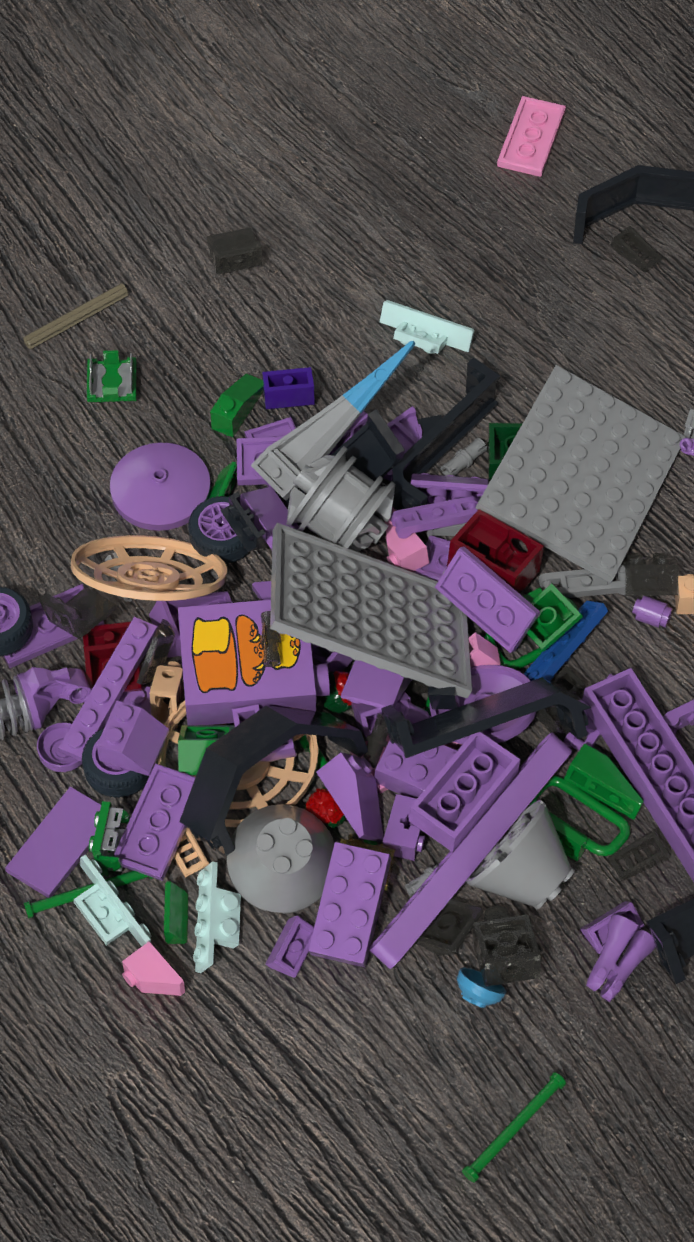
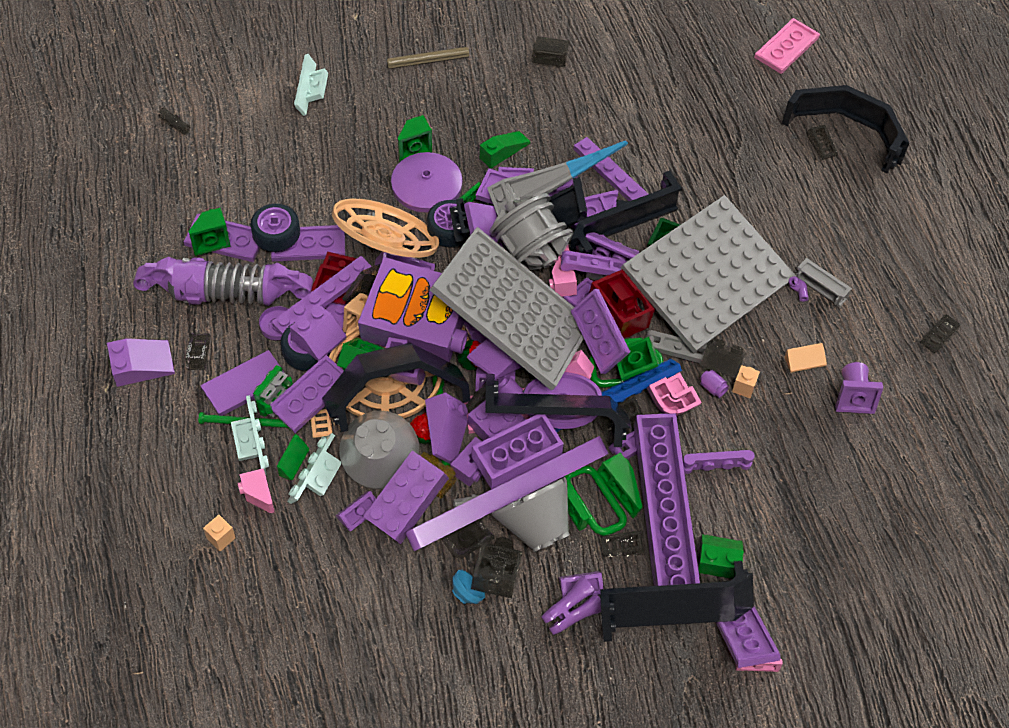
camera: 20 degrees right, 0 degrees up
(79, 613) = (328, 242): clear smoke bracket -> none
(112, 378) = (430, 103): green piece -> none
(121, 432) = (415, 138): none -> green slope
(132, 1046) = (219, 533): none -> light nougat brick
(270, 640) = (430, 306): clear smoke pin -> none
(288, 388) = (539, 148): dark purple brick -> none
(395, 388) = (611, 172): none -> medium lavender plate
(424, 329) = (651, 144): light aqua bracket -> none
(443, 698) = (535, 384): black tile -> none
(464, 457) = (635, 235): light grey pin -> none
(471, 1172) = (488, 674): green bar -> none
(613, 647) = (673, 395): none -> bright pink brick

